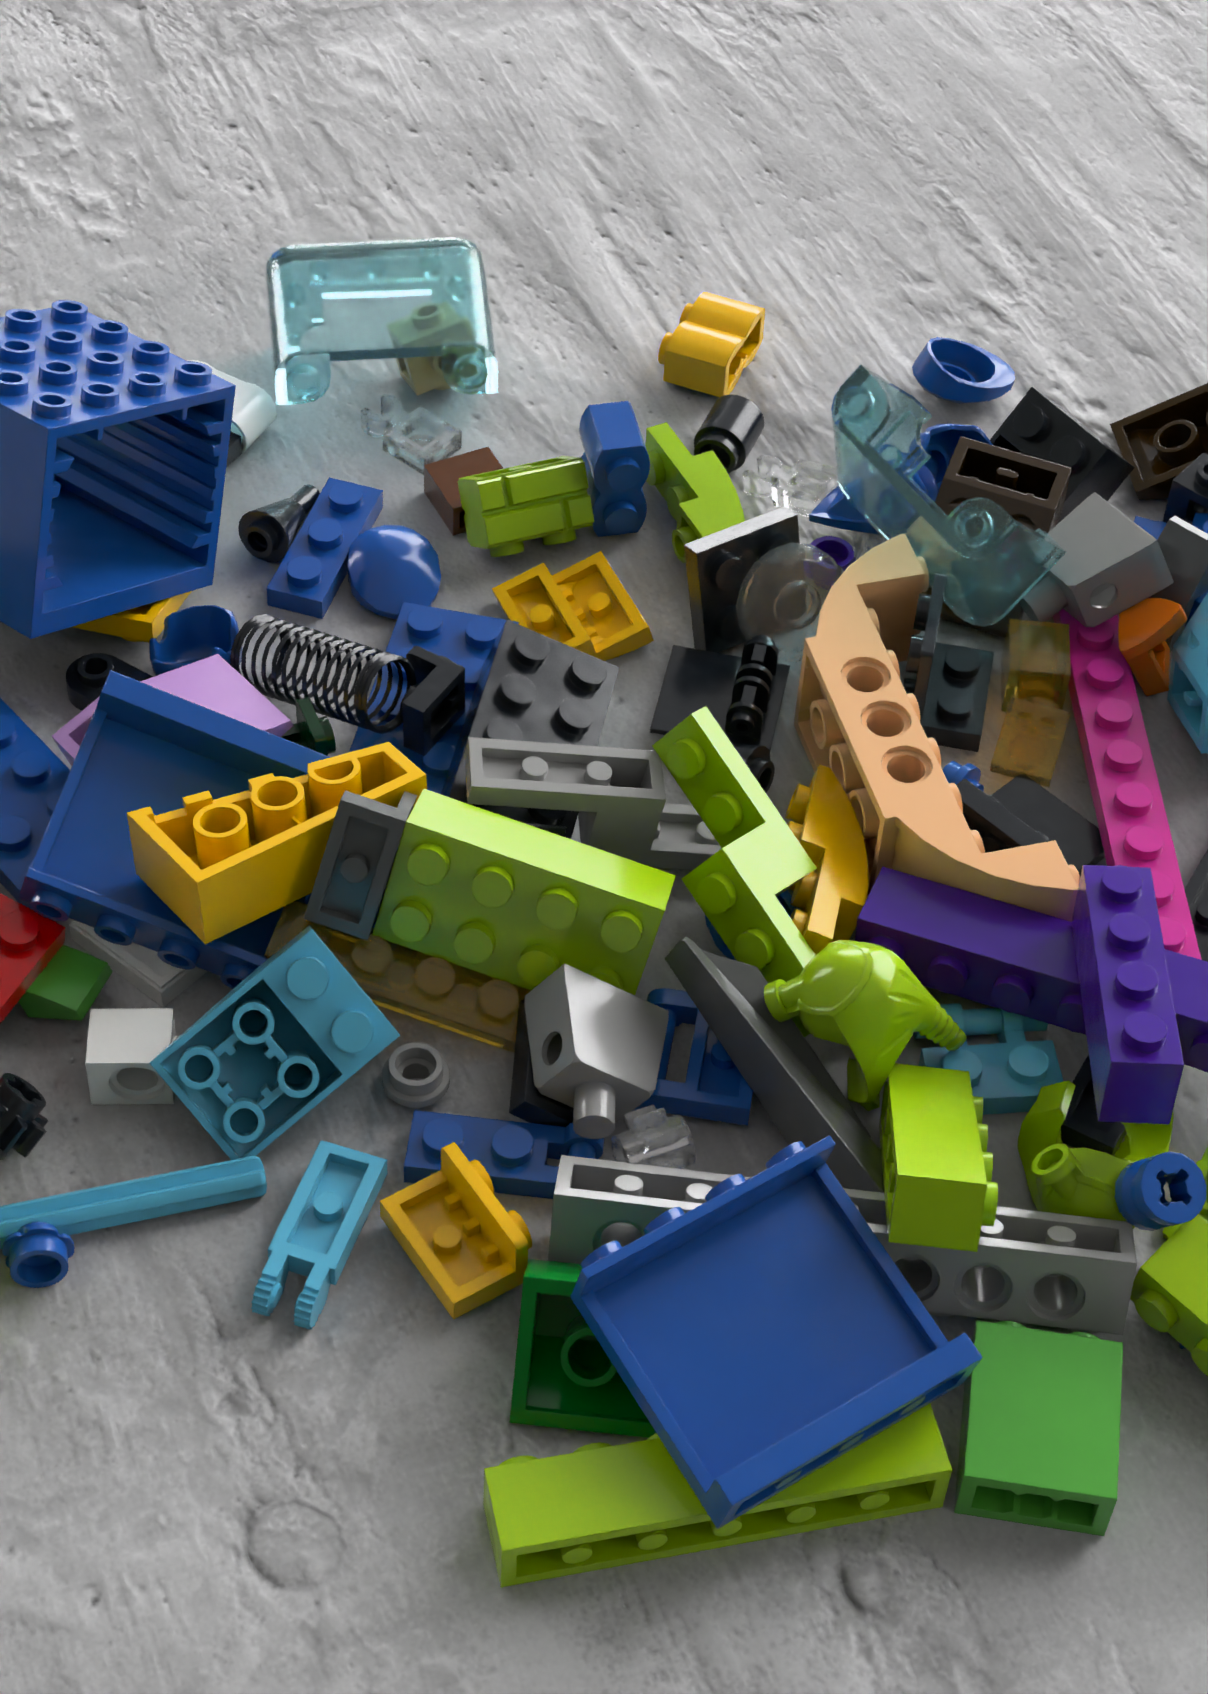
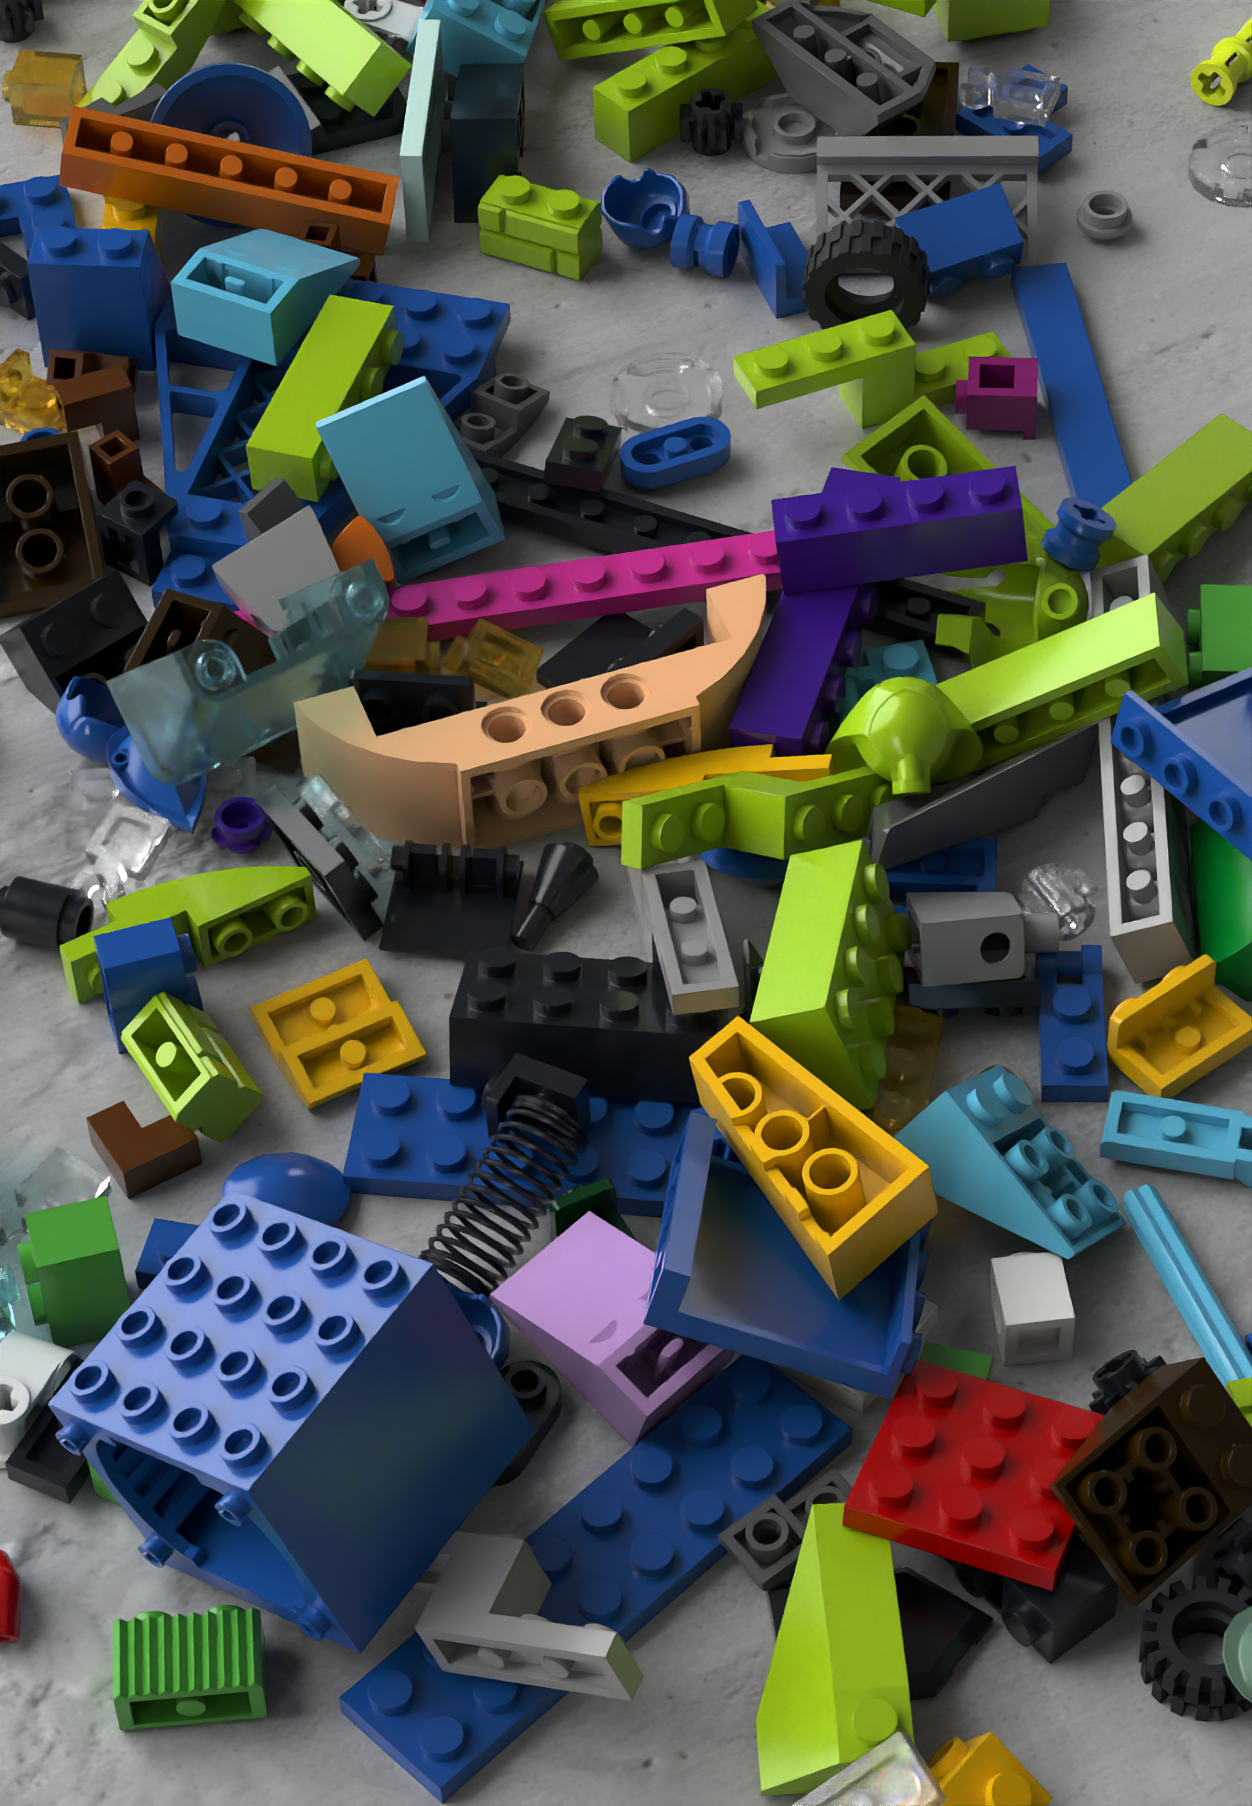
camera: 90 degrees left, 0 degrees up
(307, 421) = (78, 1270): none -> bright green brick
(357, 863) = (828, 1051): dark grey panel -> none

